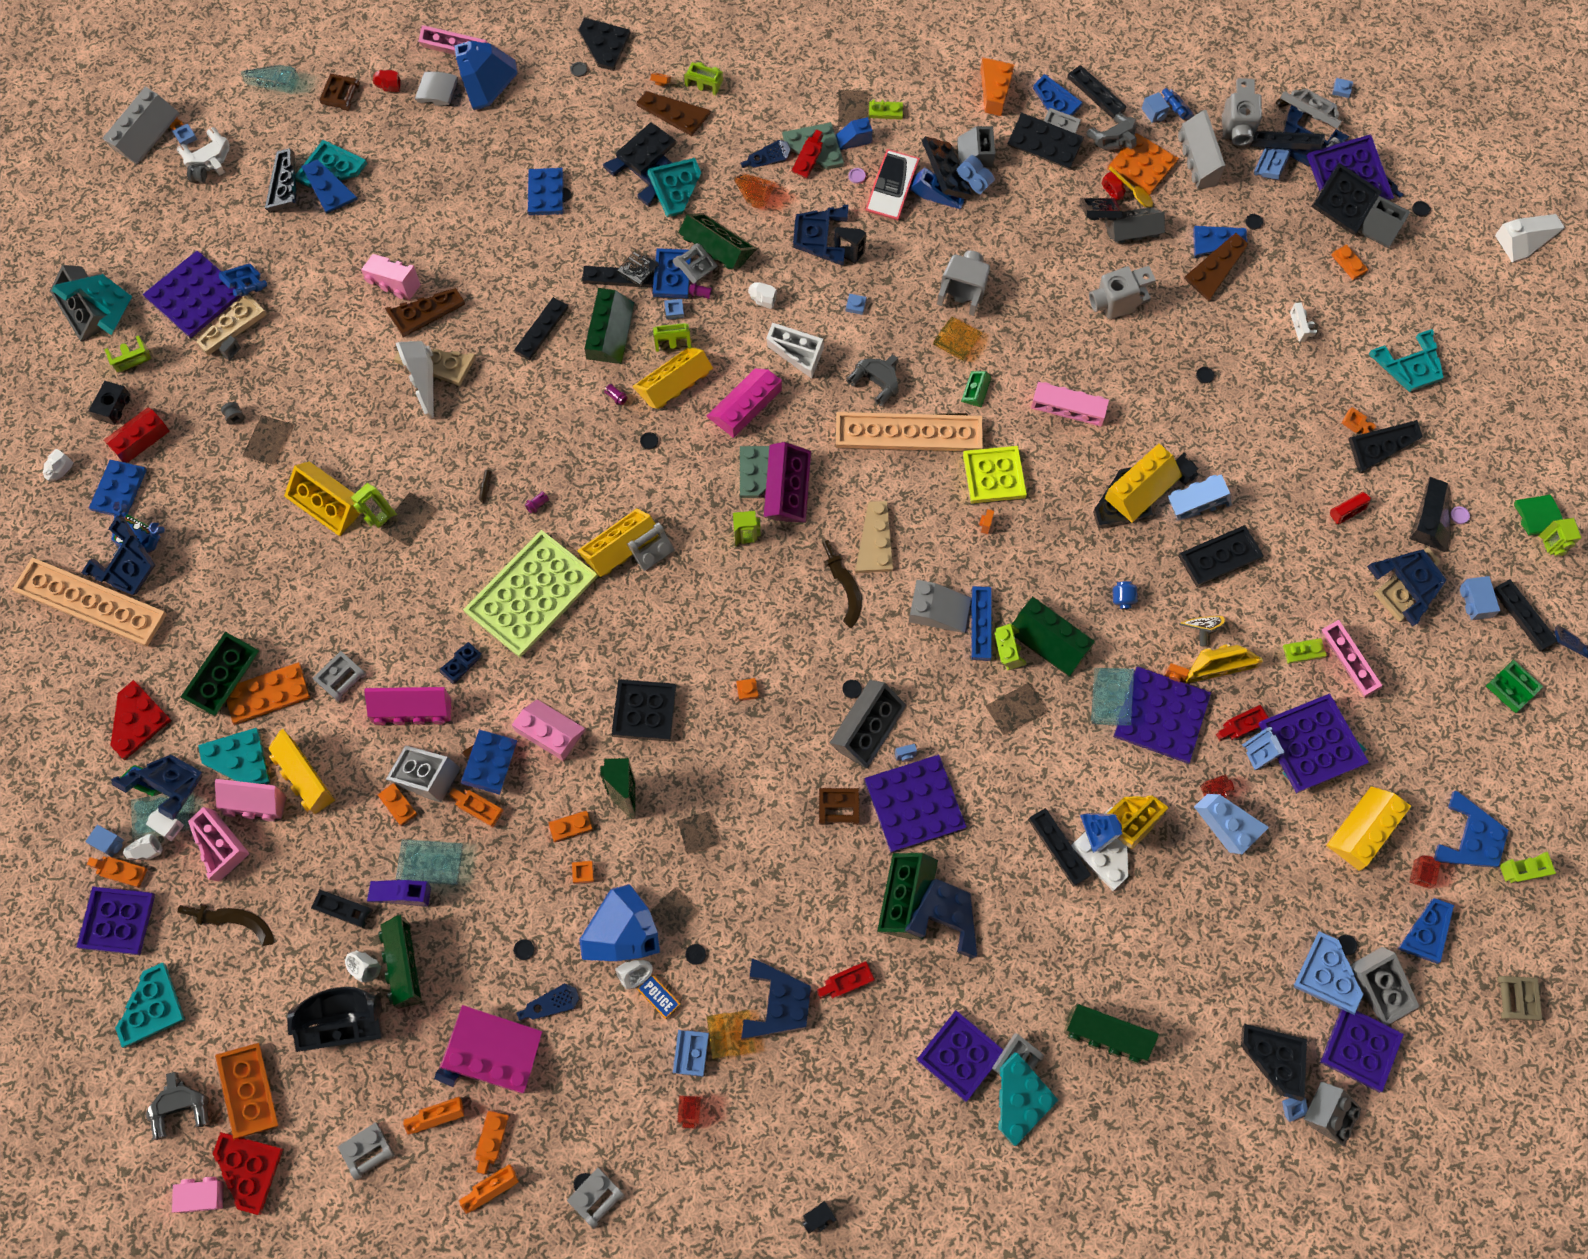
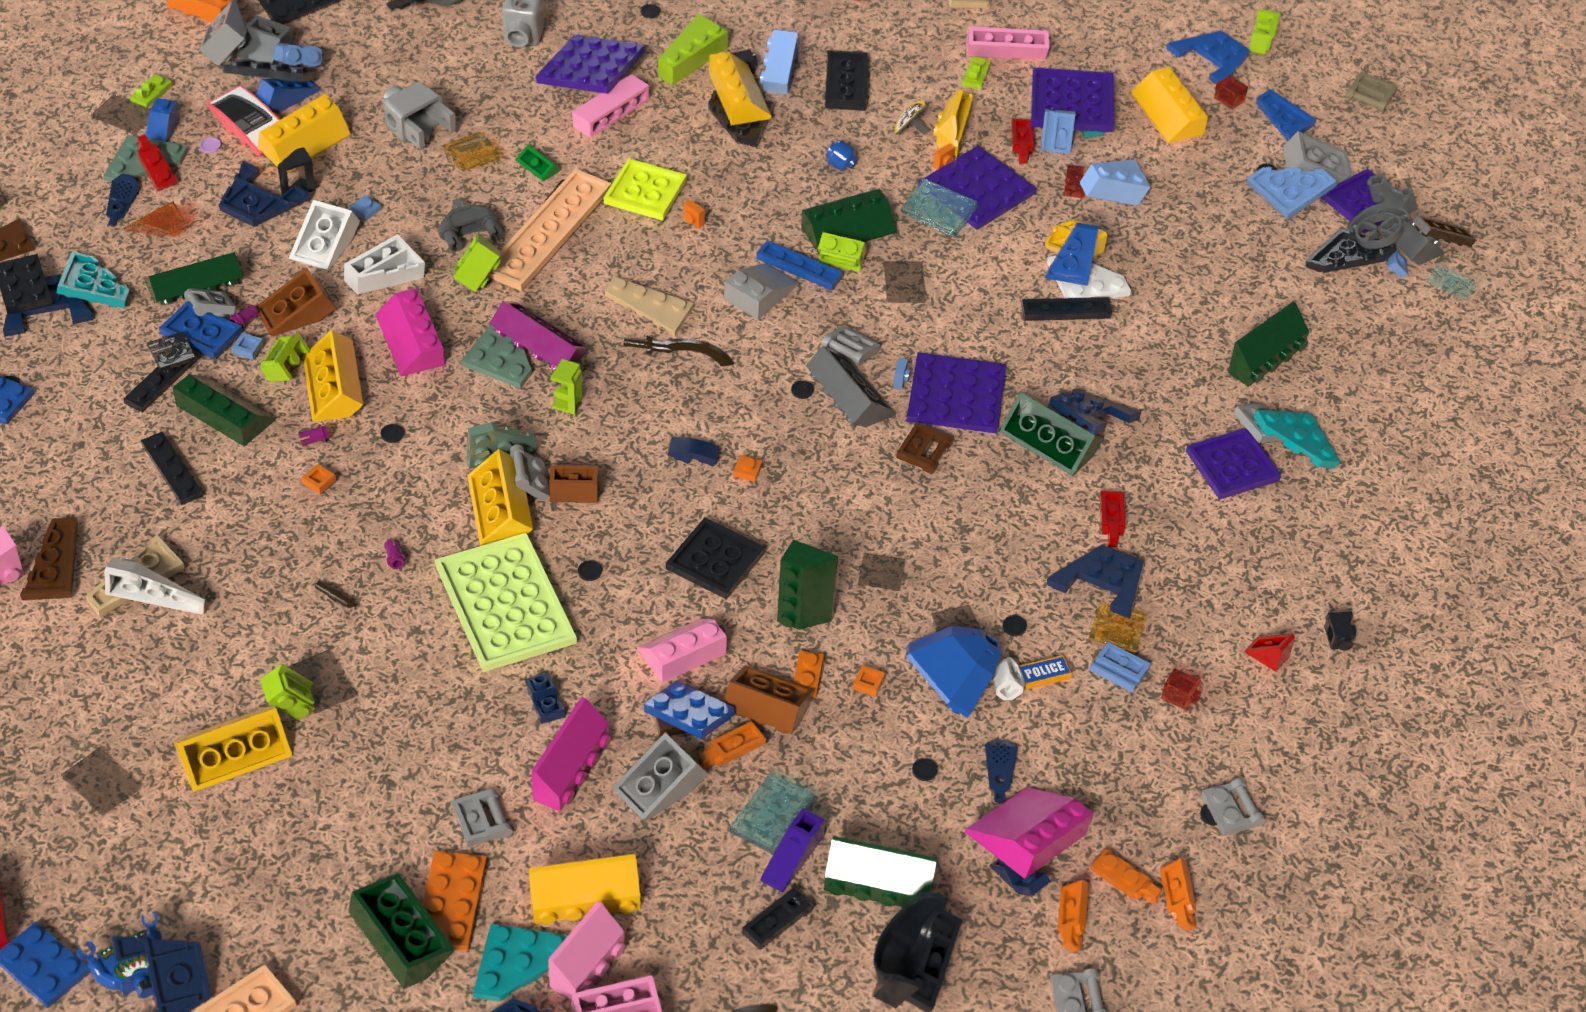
camera: 65 degrees left, 20 degrees down
(232, 413) = (36, 799): dark grey wheel -> none
(362, 966) = (858, 920): white rock -> none
(397, 804) = (681, 821): orange plate -> none
(527, 810) = (768, 699): none -> dark orange slope
(577, 419) = (318, 479): none -> orange plate
(591, 632) = (589, 570): none -> black piece
(658, 514) = (488, 438): none -> sand green plate
(663, 578) = (574, 483): none -> dark orange slope
(729, 315) = (295, 304): none -> dark orange slope
(739, 643) = (687, 448): none -> dark blue slope
(763, 294) = (292, 265): white rock -> none
(768, 1164) = (1272, 650): none -> red slope
(806, 294) = (324, 235): none -> white slope
(832, 404) = (476, 263): none -> lime slope
(898, 225) = (313, 126): none -> yellow slope
(920, 702) = (851, 344): none -> light grey plate
(962, 119) = (224, 34): none -> light grey slope
(1104, 366) = (590, 64): none -> dark purple plate
(1173, 427) = (692, 49): none -> lime wedge
(1305, 1166) = (1451, 282): none -> clear light blue slope
(1352, 1078) = (1392, 207): none -> dark grey piece
(1352, 1137) = (1444, 231): none -> dark brown plate

